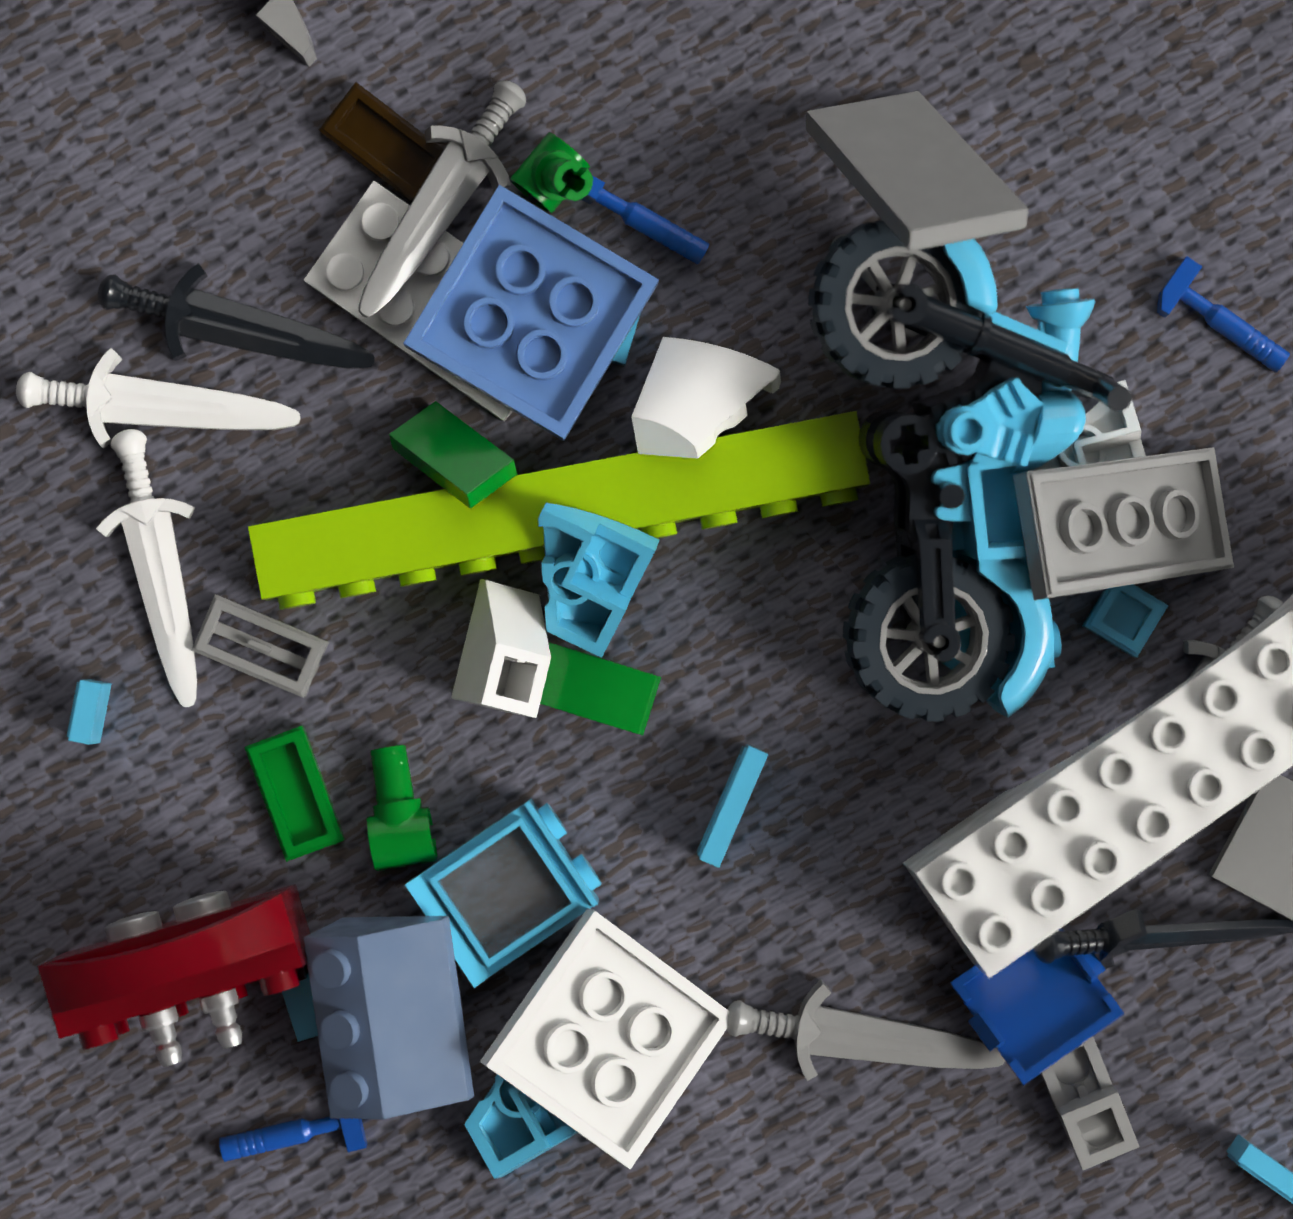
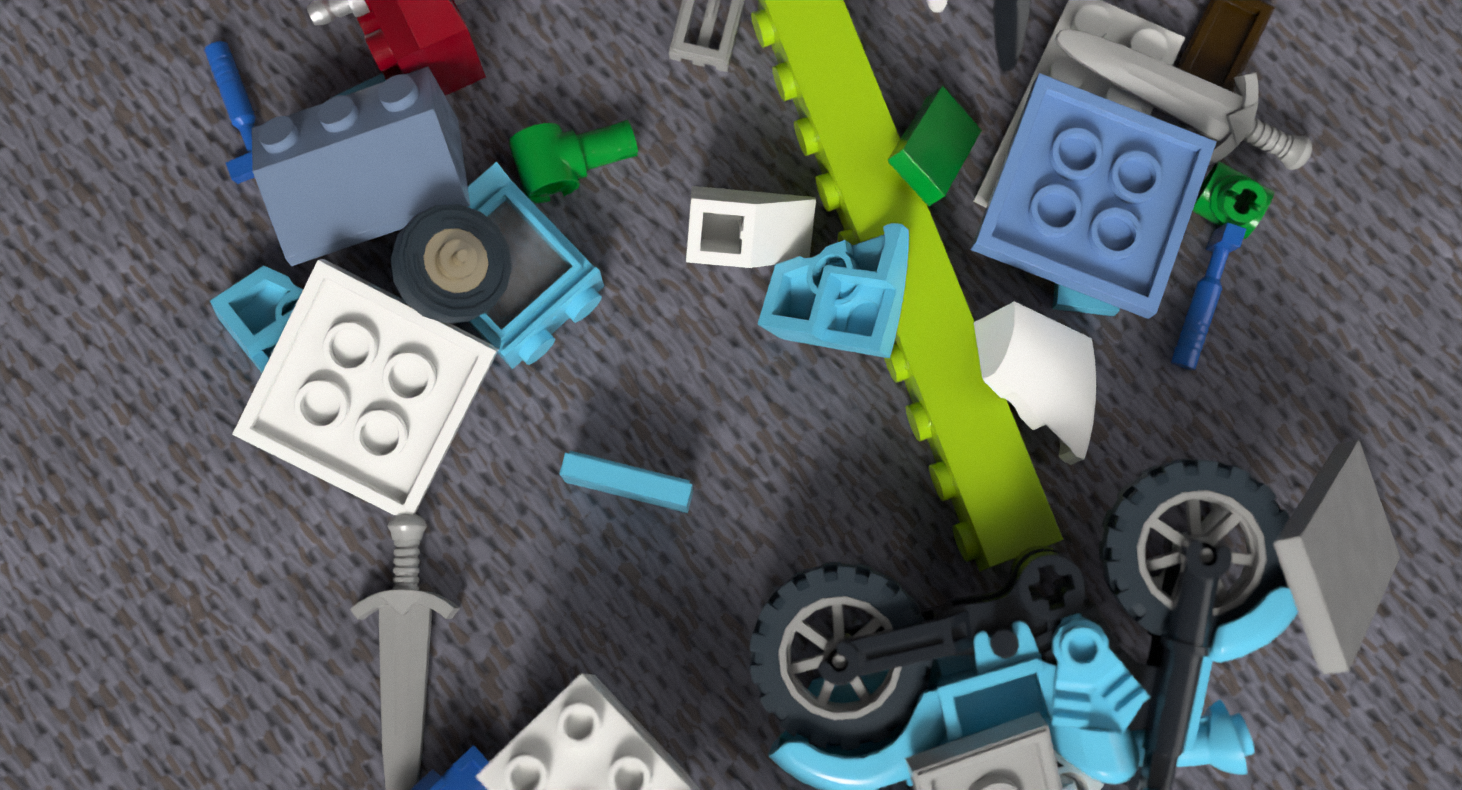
camera: 80 degrees right, 10 degrees down
(294, 793) = (574, 60): green tile -> none
(508, 940) = (451, 263): none -> black wheel
(599, 689) = (724, 326): green slope -> none

